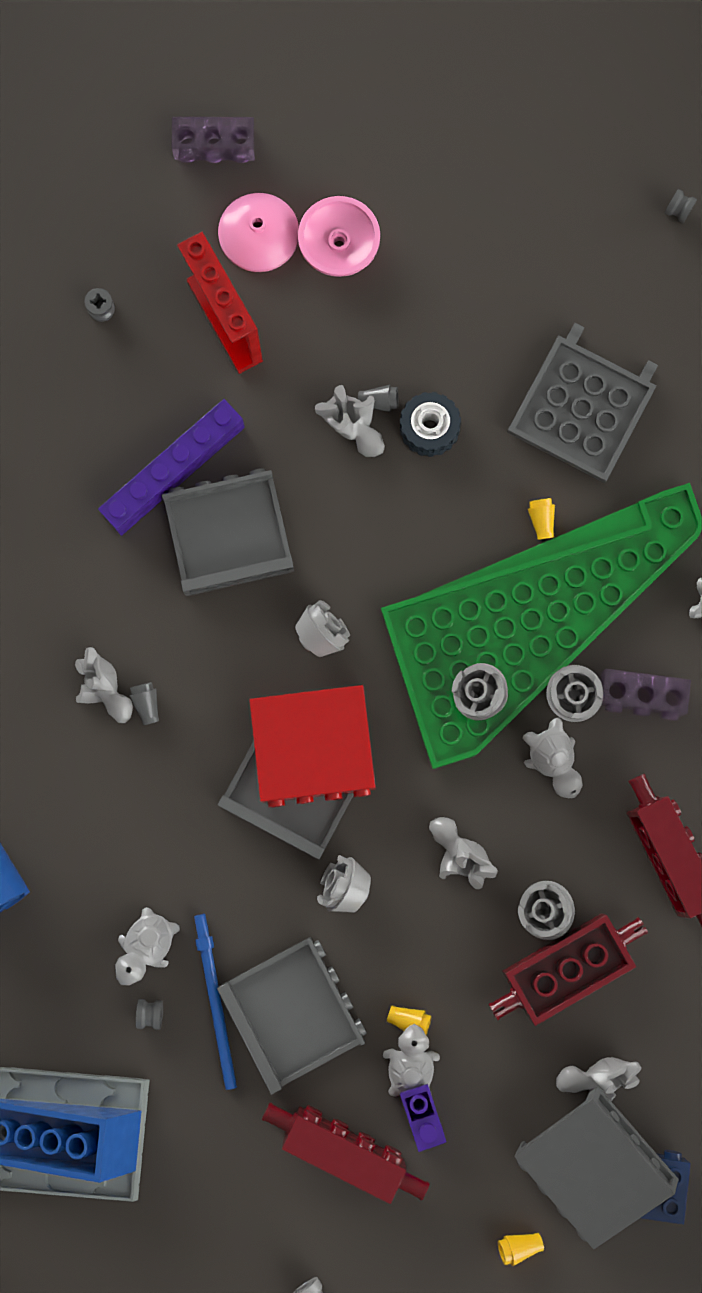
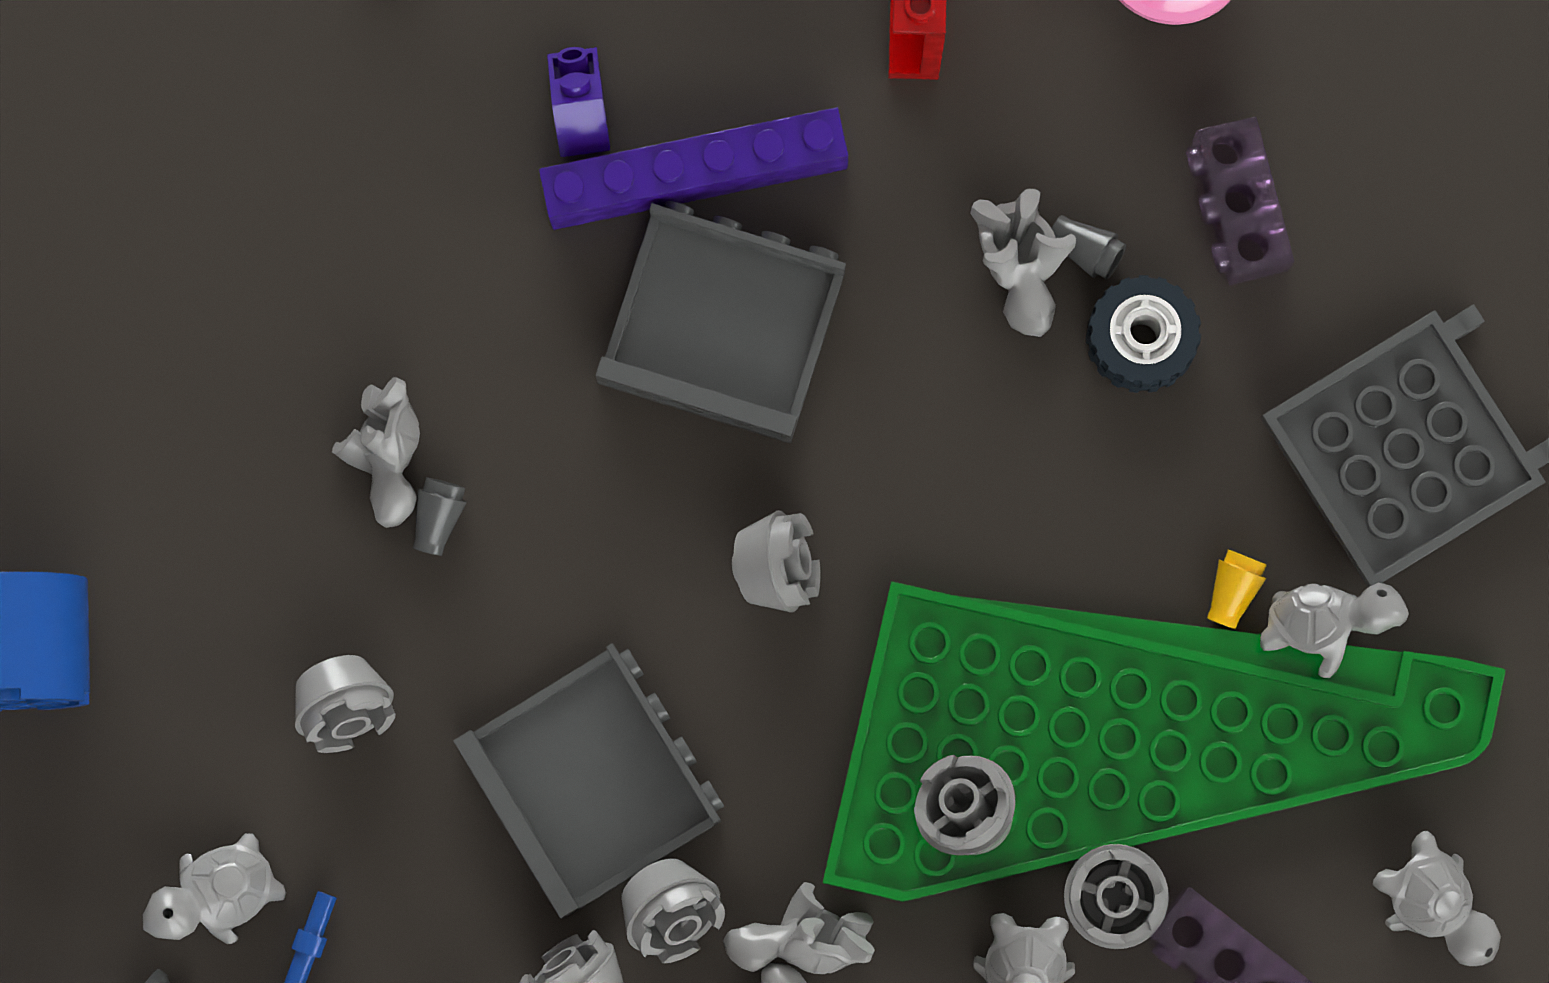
camera: 35 degrees right, 0 degrees up
(98, 467) = (578, 101): none -> dark purple slope
(152, 818) = (341, 702): none -> light grey cone
(312, 745) = (654, 735): red panel -> none
(368, 824) = (670, 909): none -> light grey cone
(438, 323) = (1253, 179): none -> clear purple brick
(440, 799) = (806, 938): none -> light grey animal
(594, 506) = (1322, 617): none -> light grey animal

